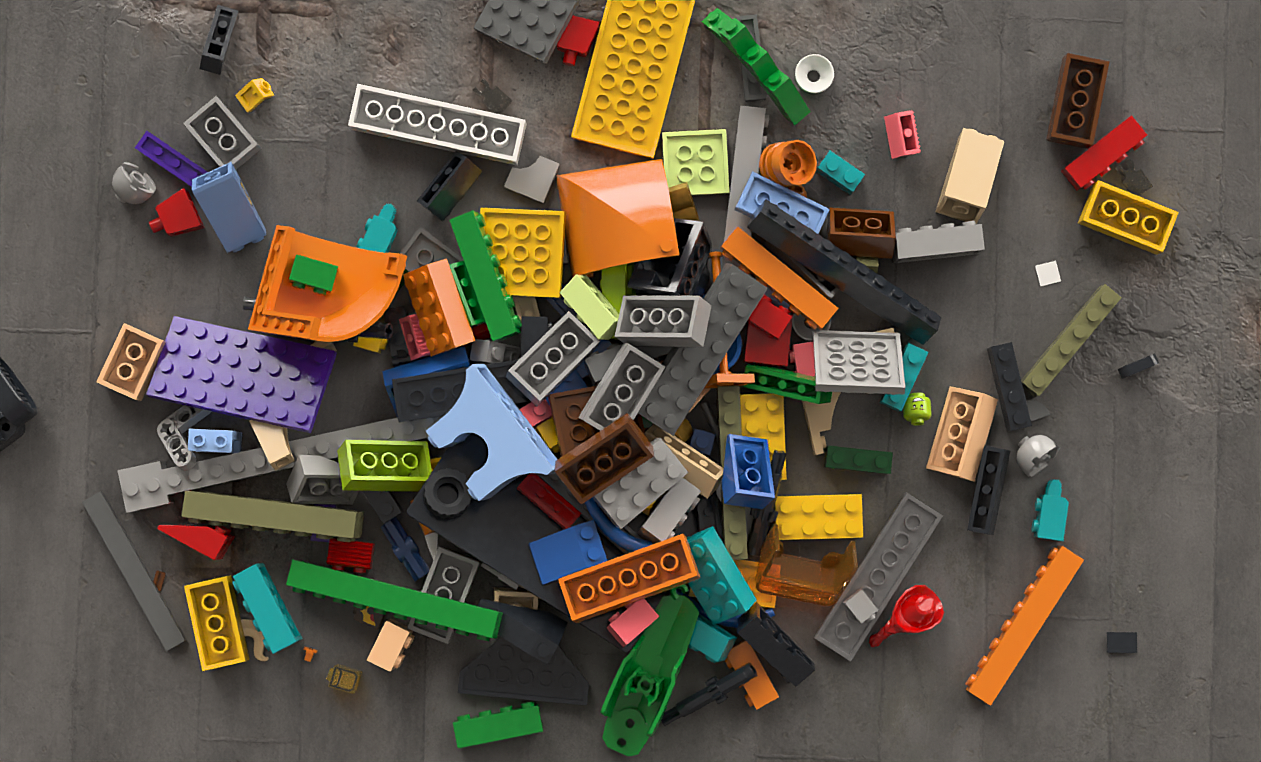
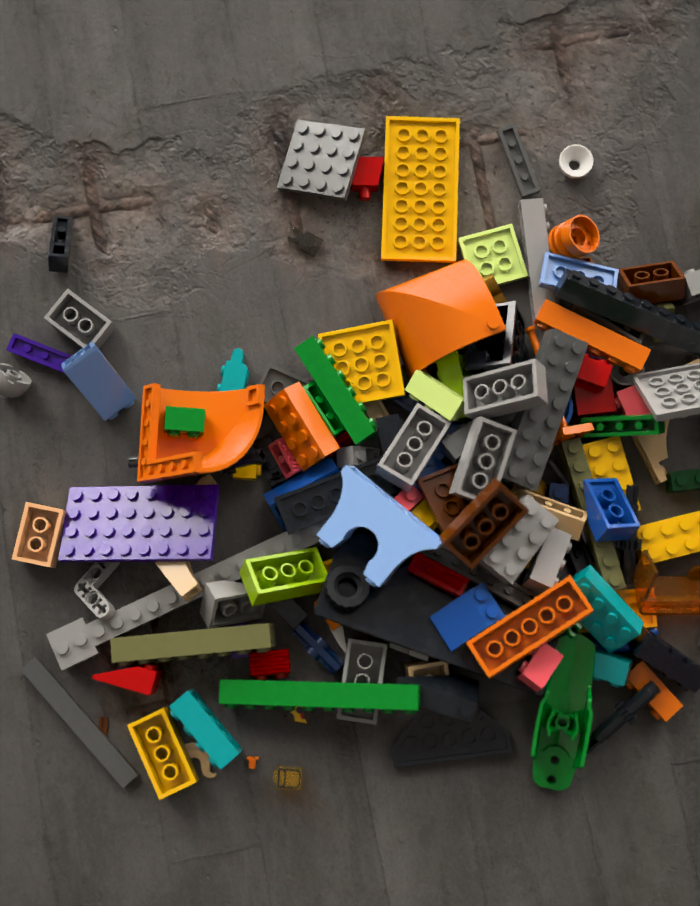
camera: 10 degrees left, 5 degrees down
(177, 215) = (54, 399): red torso -> none
(214, 441) = (127, 588): light blue panel -> none
(254, 93) = (100, 282): yellow bracket -> none
(390, 645) = (324, 737): light nougat brick -> none
(437, 124) = (264, 272): white brick -> none
(449, 186) = (286, 322): black brick -> none
(498, 725) = (436, 789): green brick -> none
(534, 180) = (357, 303): light grey tile -> none
(615, 534) = (510, 593): blue animal -> none
(759, 64) = (528, 158): green arch -> none
(840, 172) = (619, 238): teal brick -> none
(902, 134) = (663, 194): coral brick -> none

